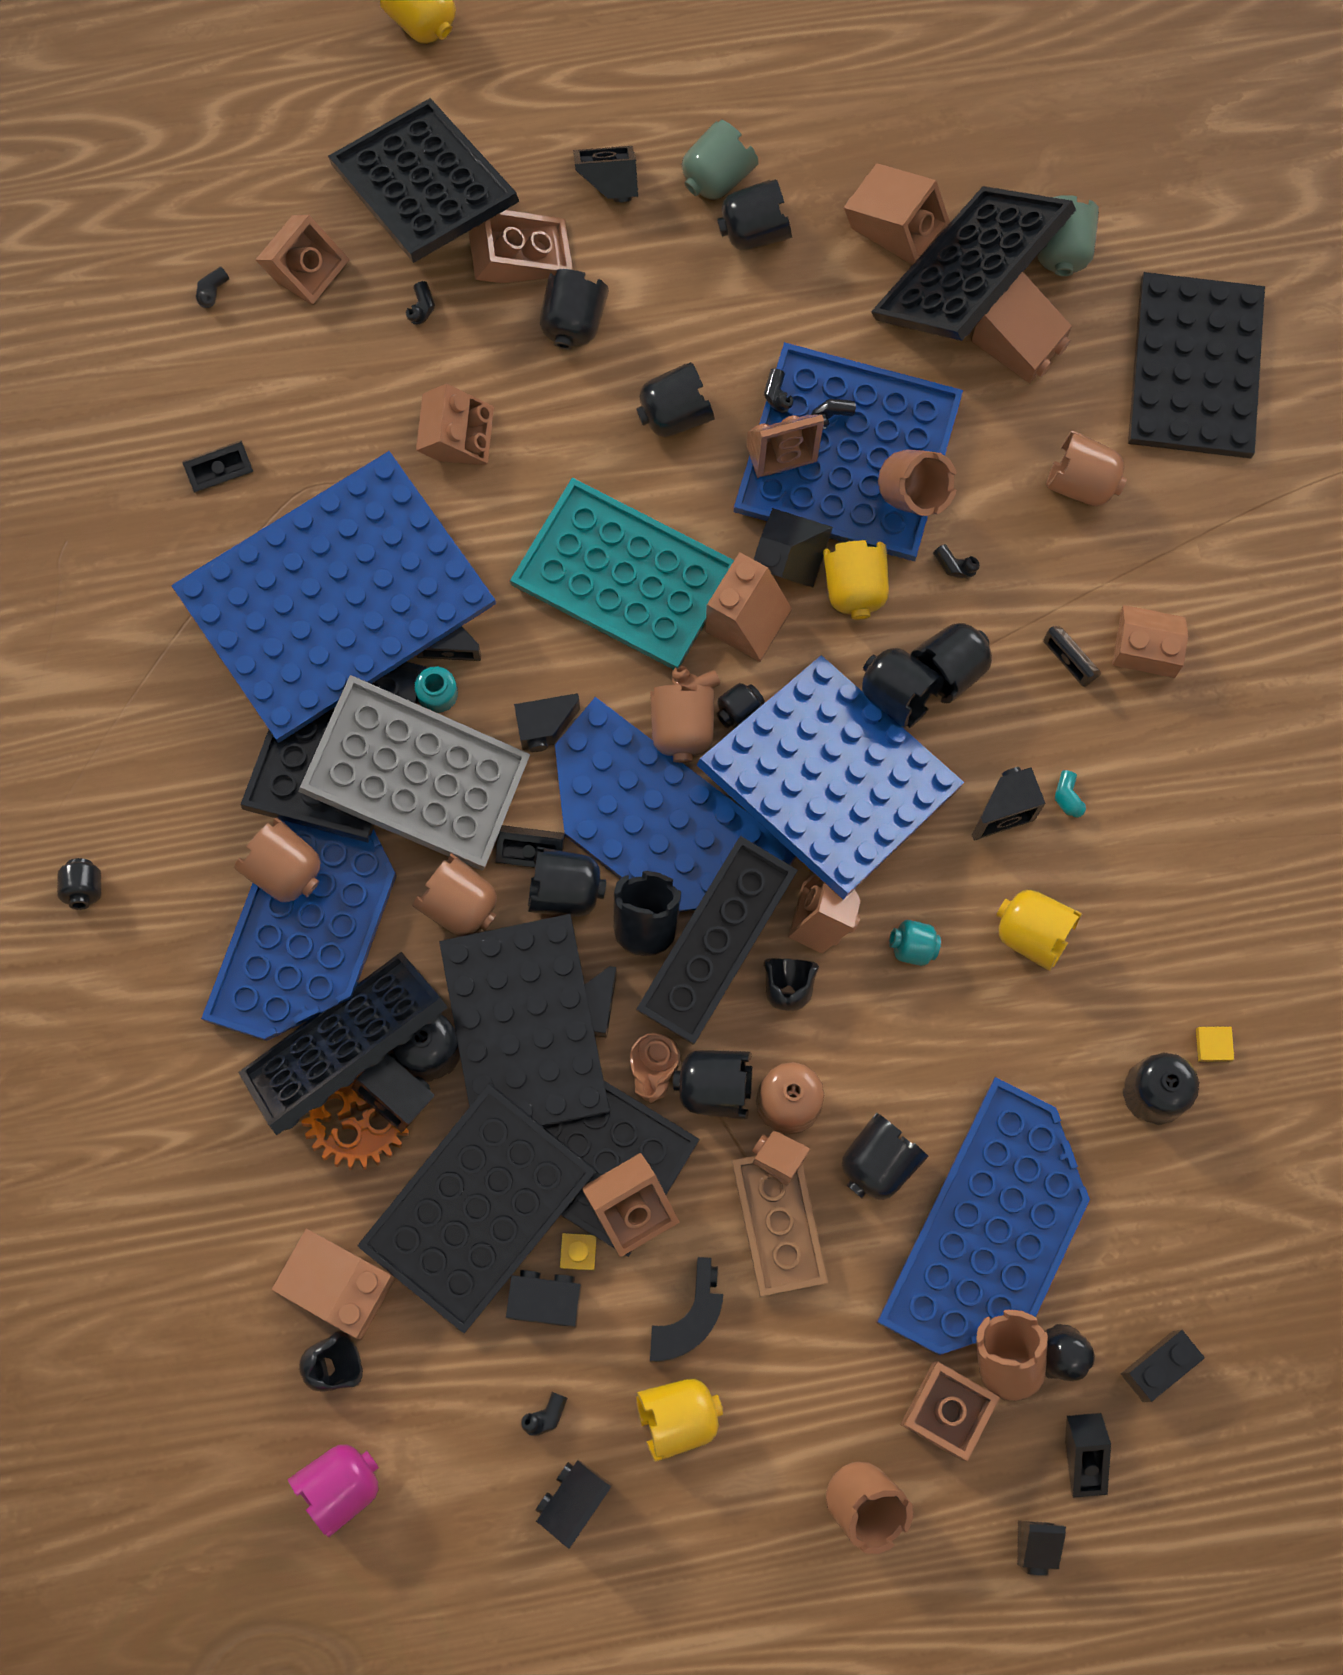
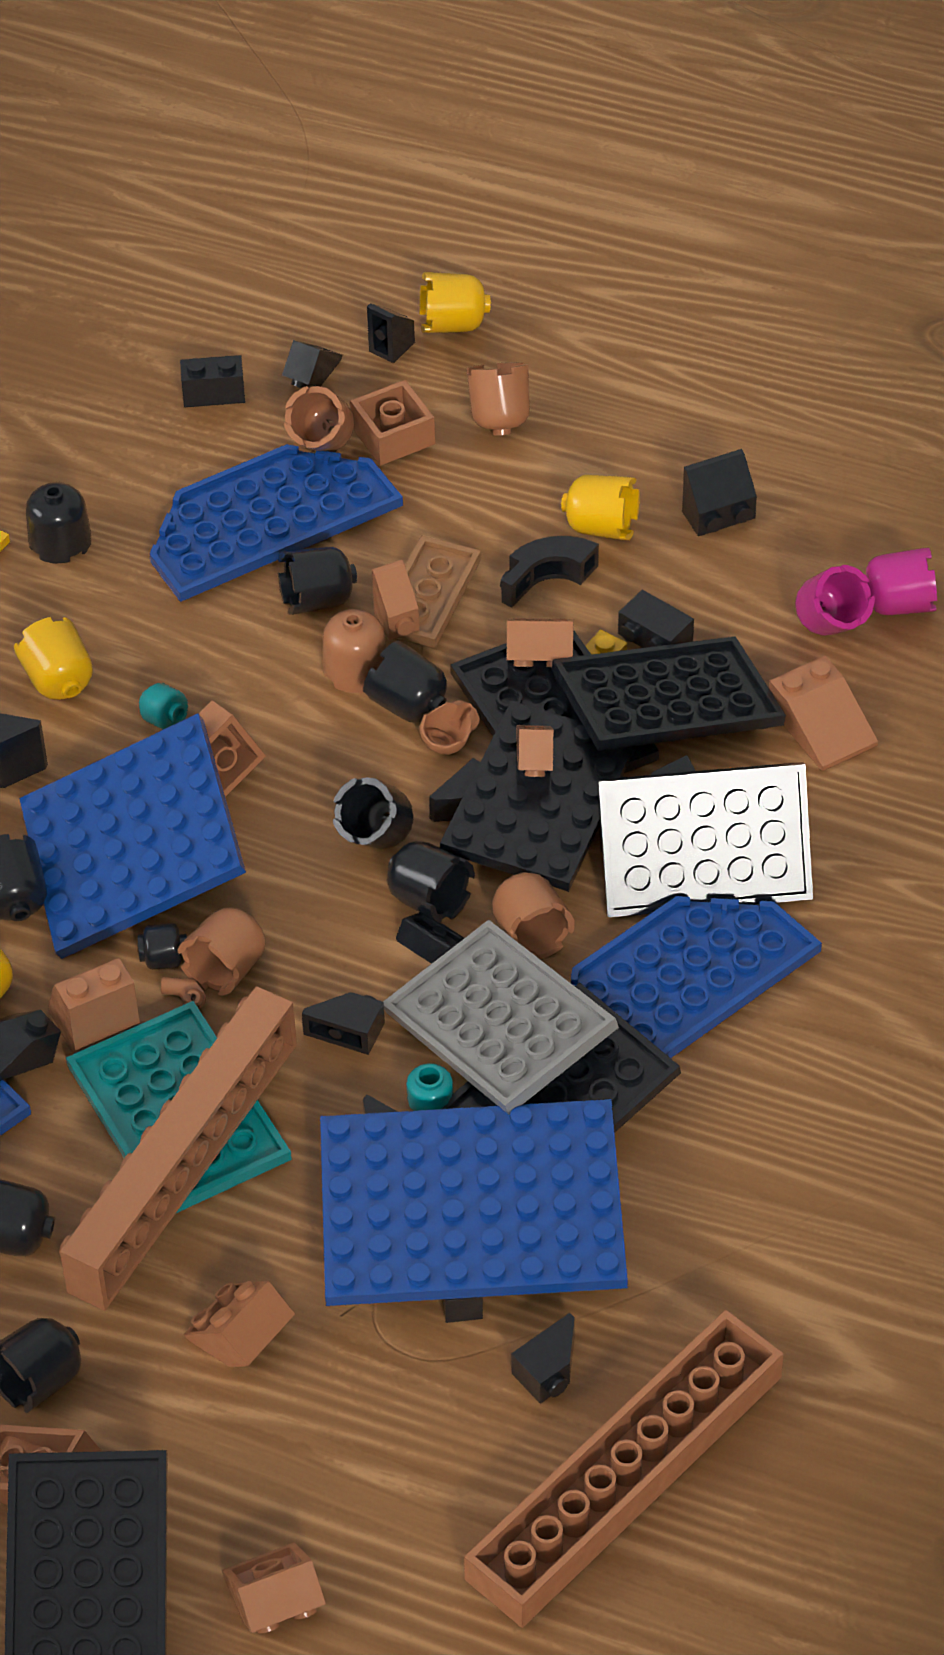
camera: 145 degrees left, 25 degrees down
(79, 883) = (873, 1103): black head -> none
(103, 468) = (622, 1468): none -> nougat brick
(207, 287) = (397, 1618): black arm -> none
(212, 520) = (546, 1360): none -> black slope
(217, 466) = (505, 1428): black slope -> none
(280, 863) = (674, 1001): nougat cylinder -> none
(344, 1358) = (861, 662): black hair -> none
(381, 1411) = (835, 601): none -> dark pink cylinder
(424, 306) = (182, 1470): black arm -> none
(545, 1050) = (534, 749): none -> nougat slope
(546, 1419) = (705, 563): black arm -> none
(582, 512) = (178, 1148): none -> nougat brick
(644, 810) = (313, 904): blue plate -> none
(716, 940) = (307, 773): black brick -> none
(793, 973) = (288, 719): black hair -> none
(1002, 1623) = (452, 302): none -> yellow cylinder
(1068, 1354) = (270, 419): black hair -> none

